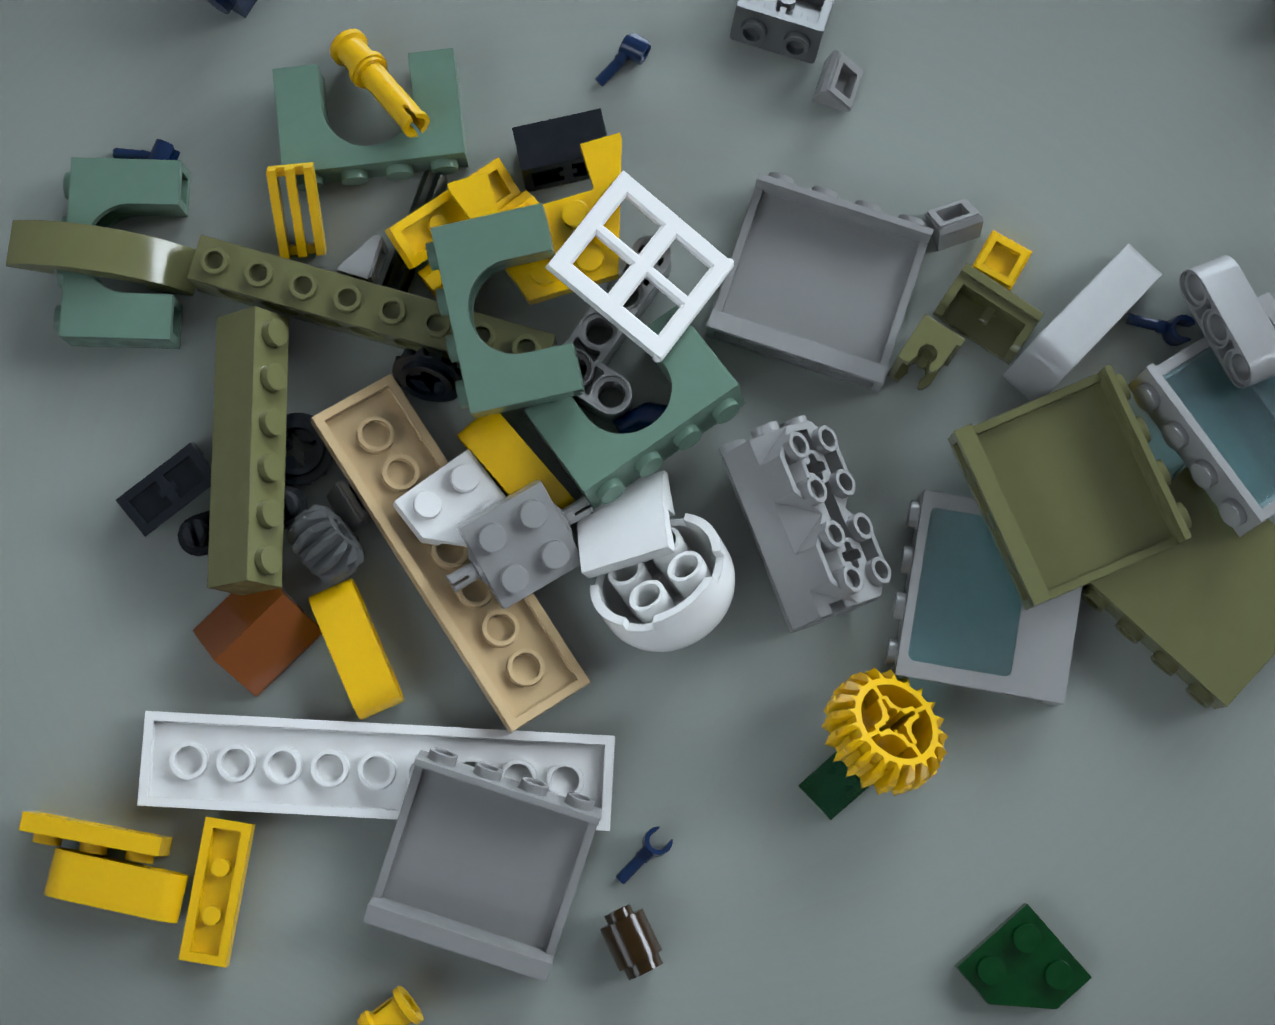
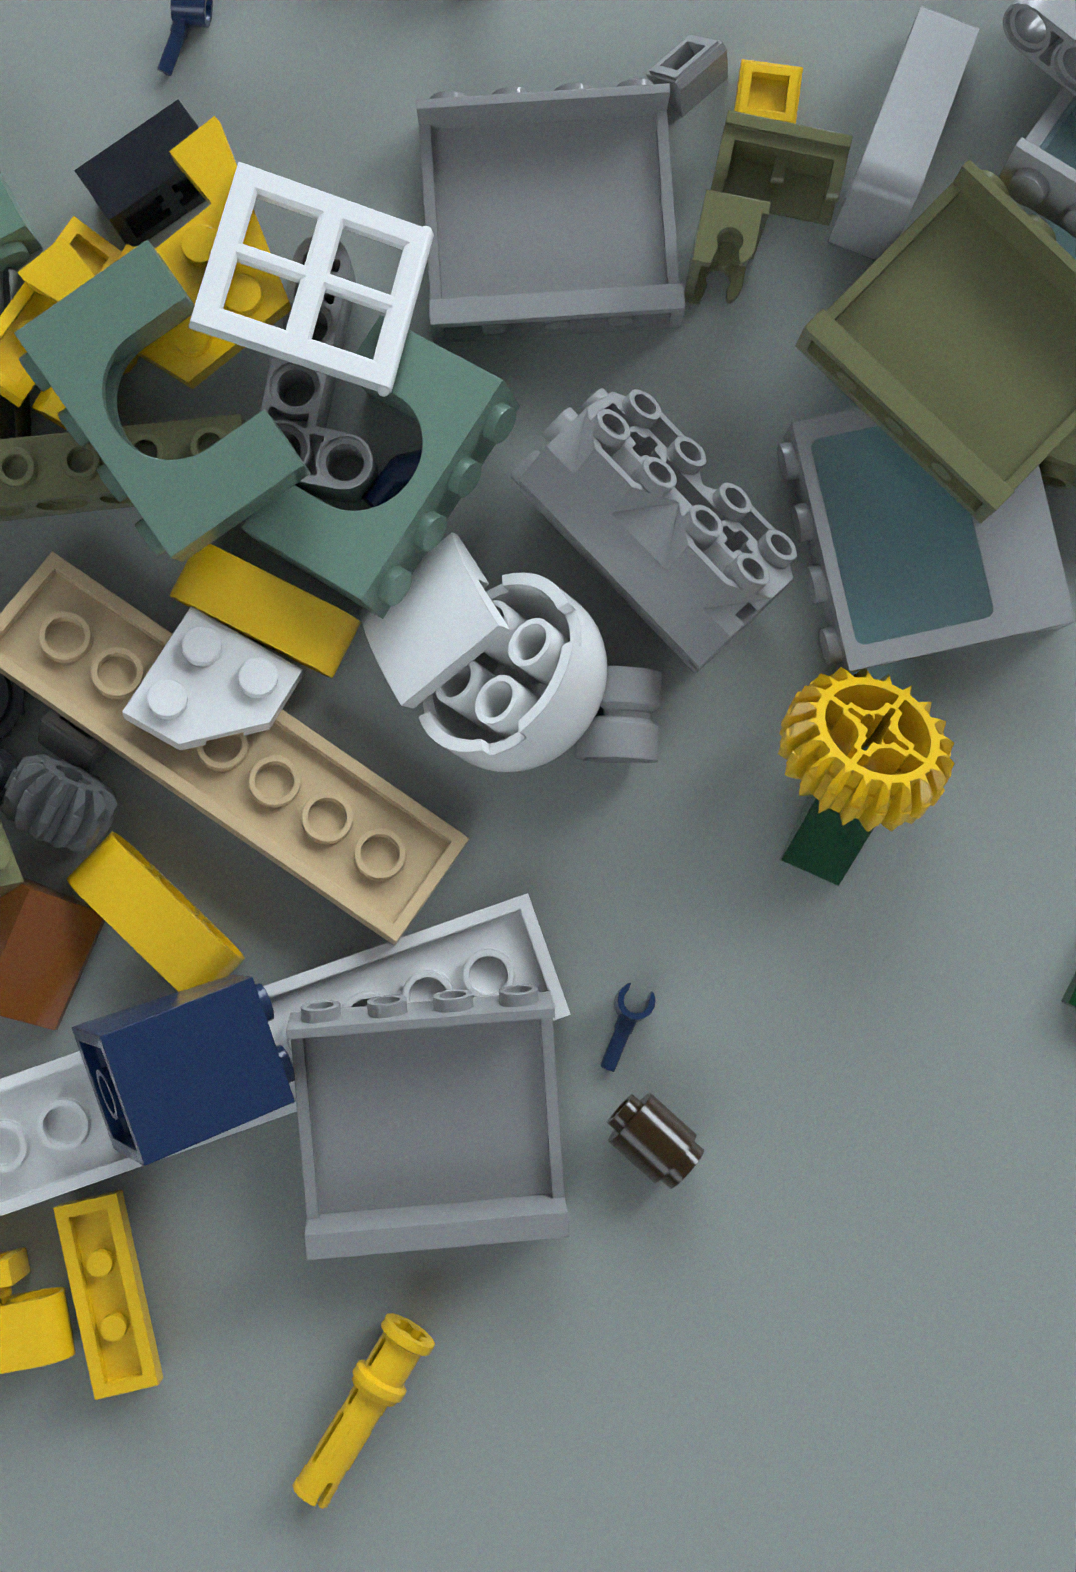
camera: 25 degrees left, 5 degrees up
(336, 755) = (185, 1067): none -> dark blue slope
(416, 375) = (83, 534): black gear -> none
(520, 544) = (307, 700): light grey plate -> none
(727, 644) = (623, 723): none -> light grey wheel
(1166, 328) = (1010, 99): dark blue hand -> none

